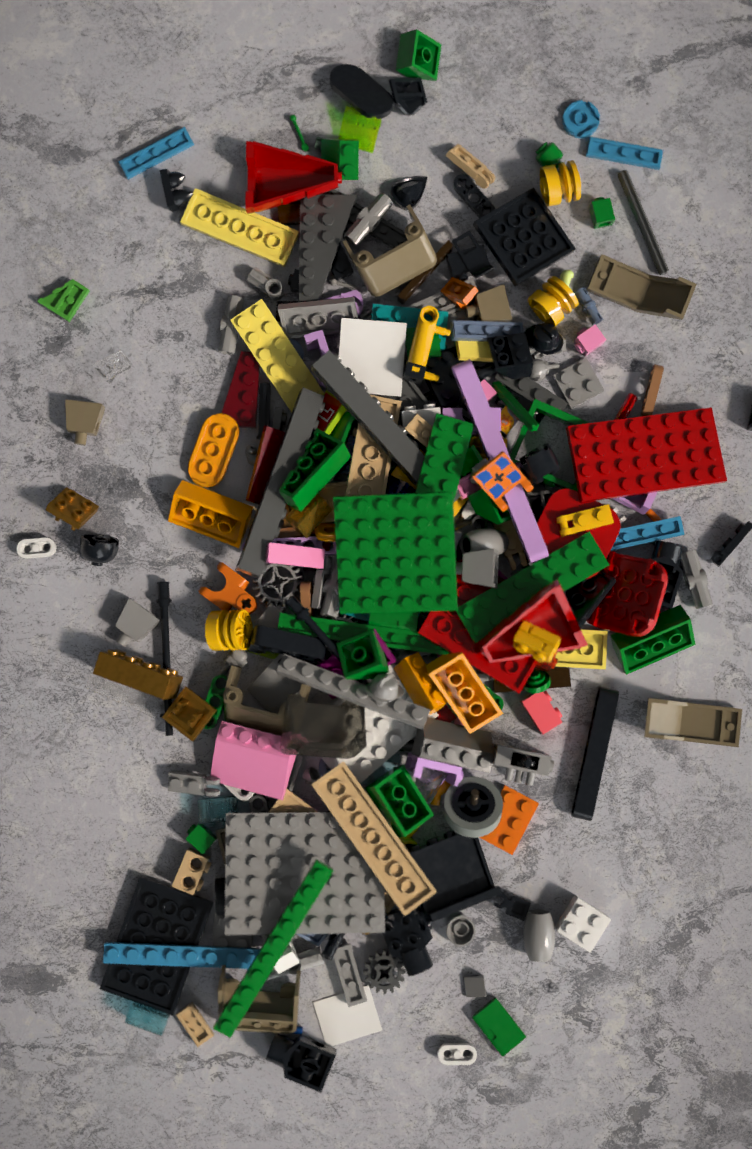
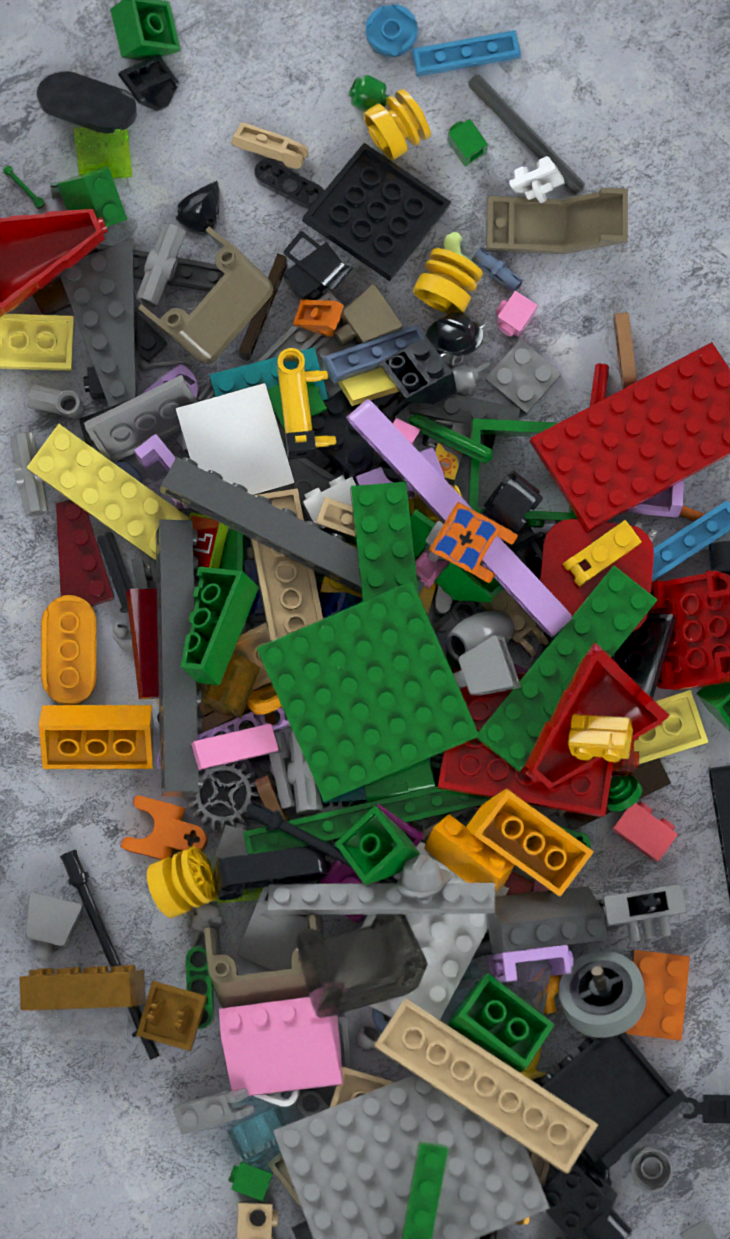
camera: 15 degrees left, 5 degrees down
(638, 257) = (537, 182): none -> white hips

